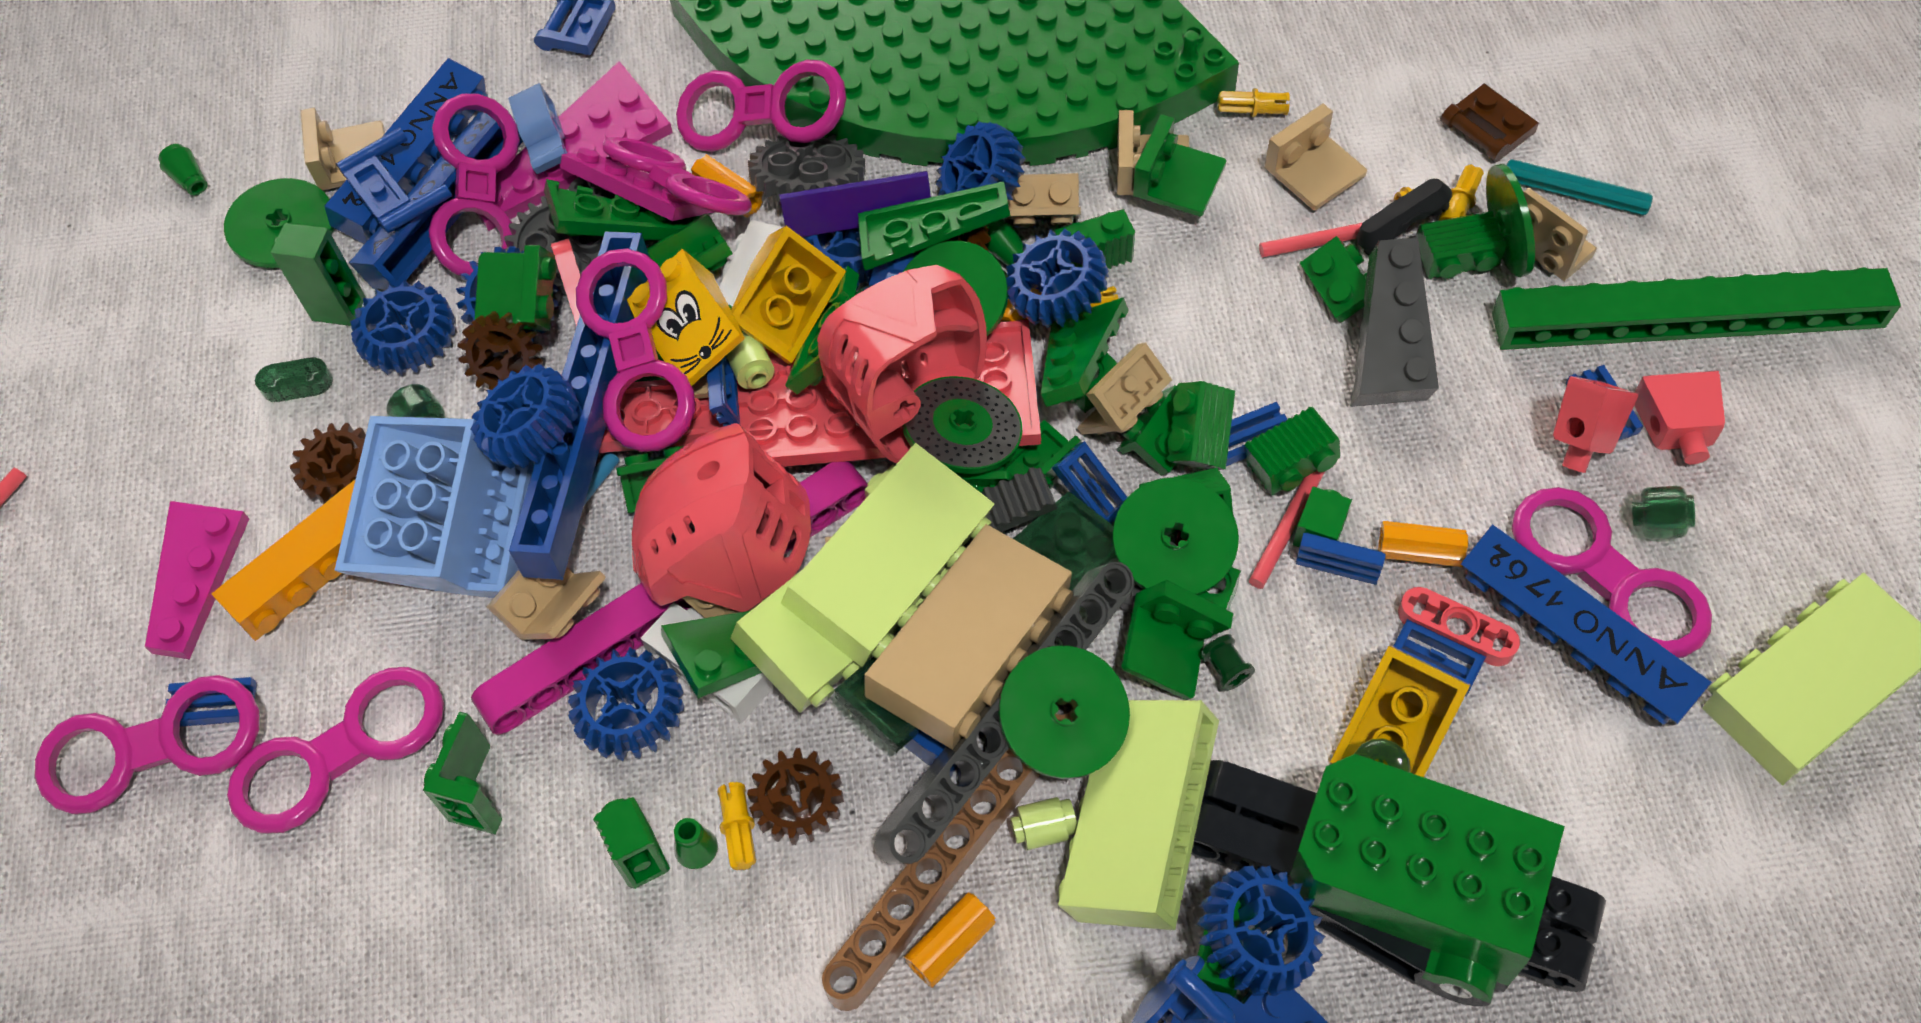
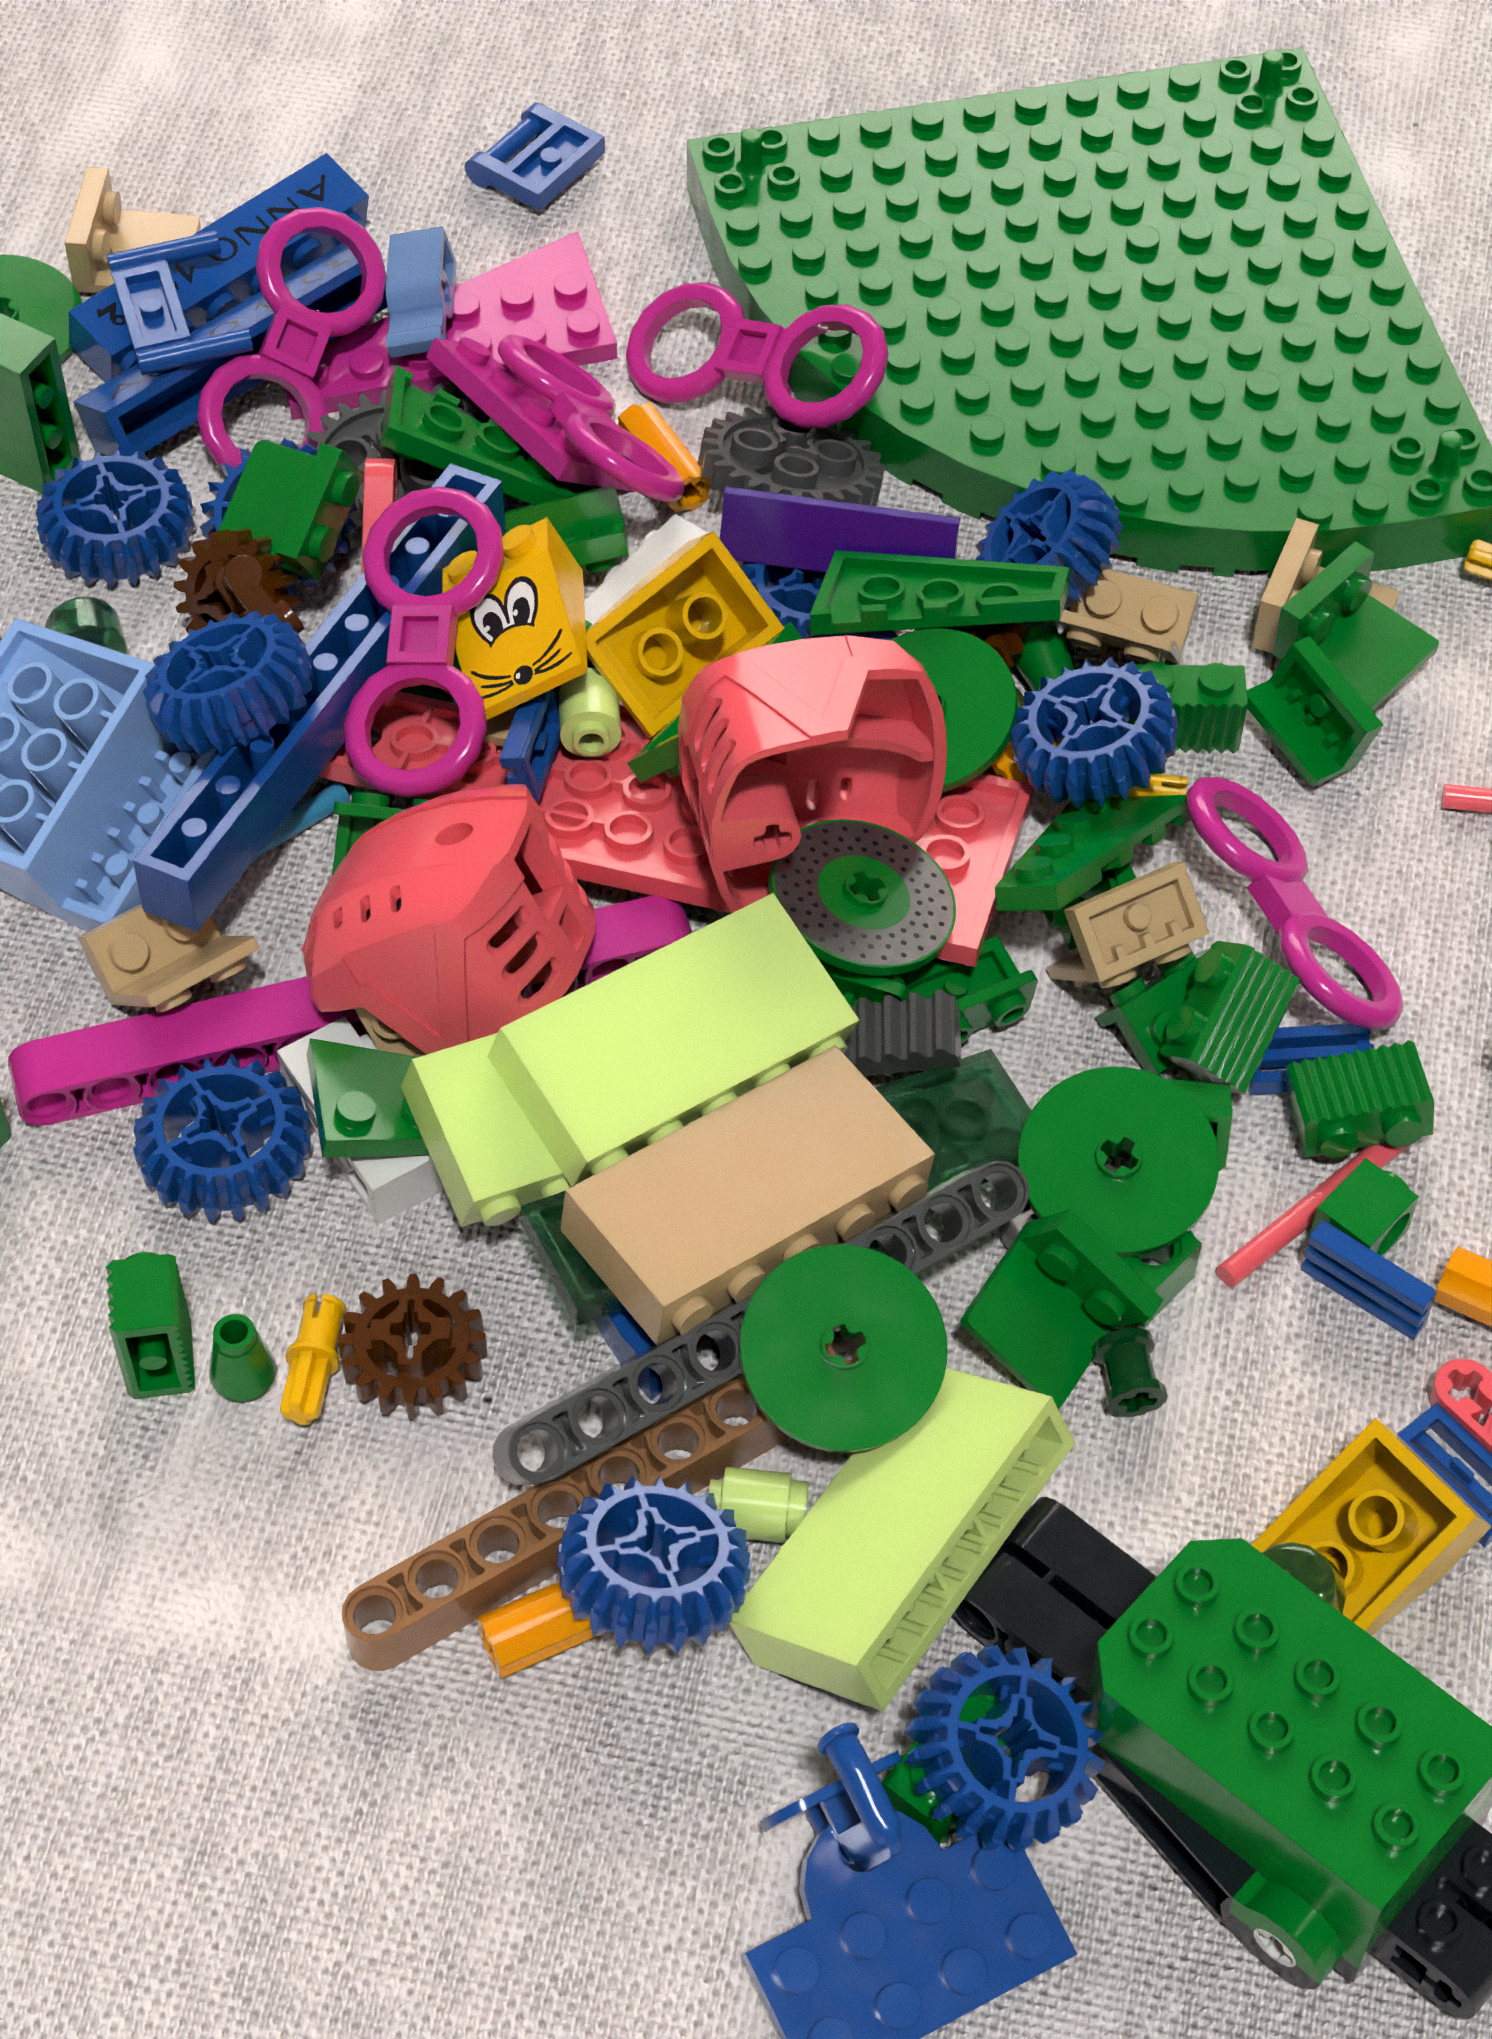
camera: 15 degrees right, 5 degrees down
(508, 352) = (241, 590): none -> reddish brown plate
(999, 903) = (654, 1564): none -> blue gear
(1099, 471) = (1047, 1032): blue tile -> none
(1173, 224) = (1314, 714): none -> green bracket
(1206, 345) = (1292, 906): none -> dark pink bar

